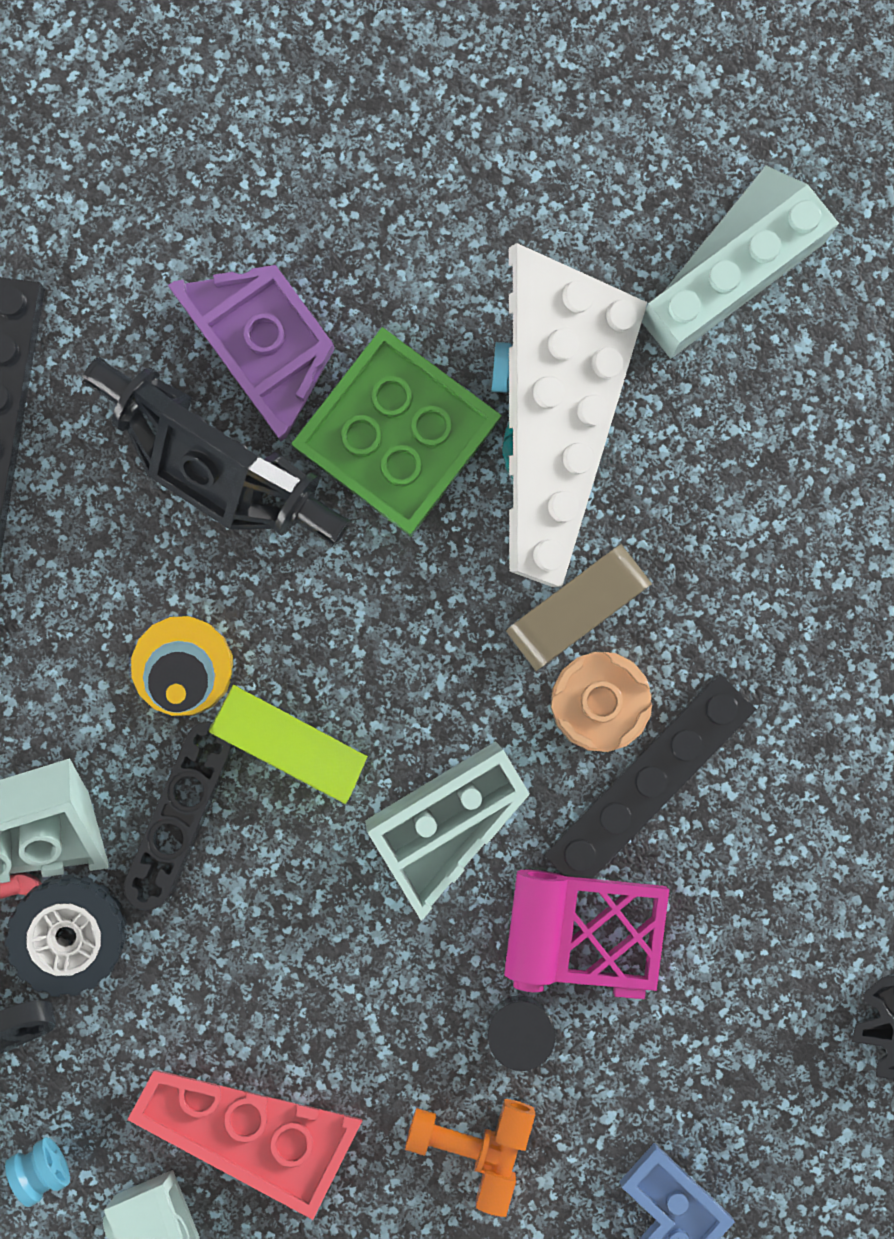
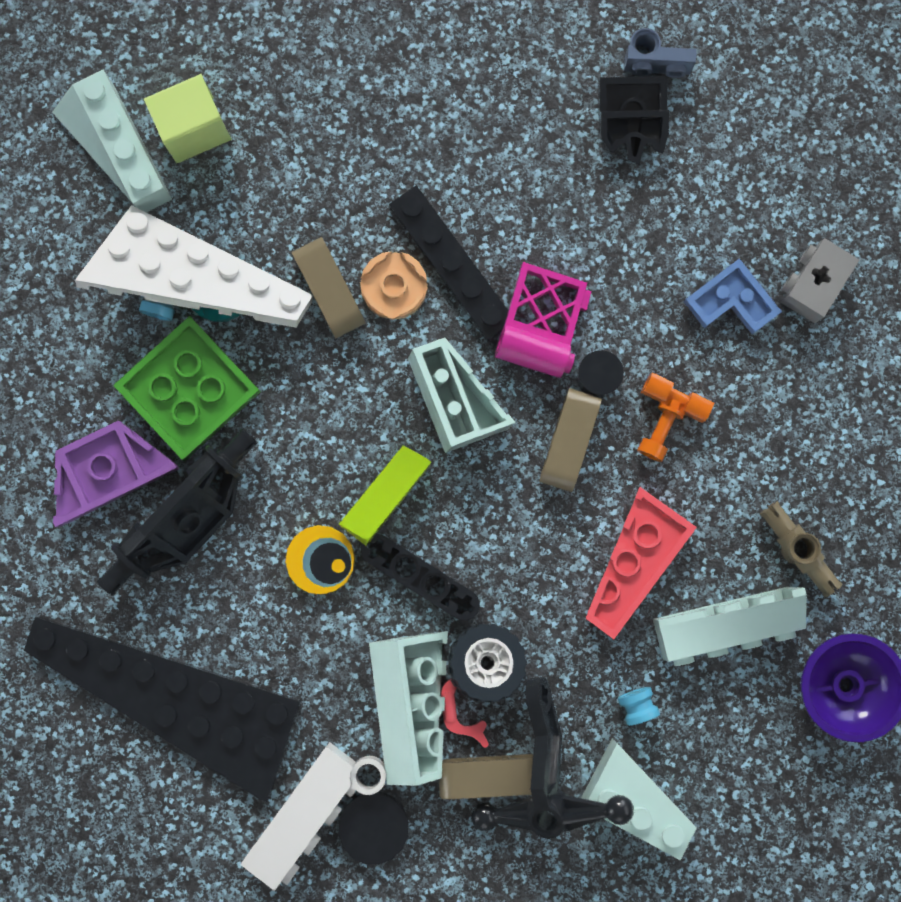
camera: 80 degrees left, 0 degrees up
(414, 1005) = (570, 440): none -> dark tan beam
(789, 357) = (187, 119): none -> yellowish green piece

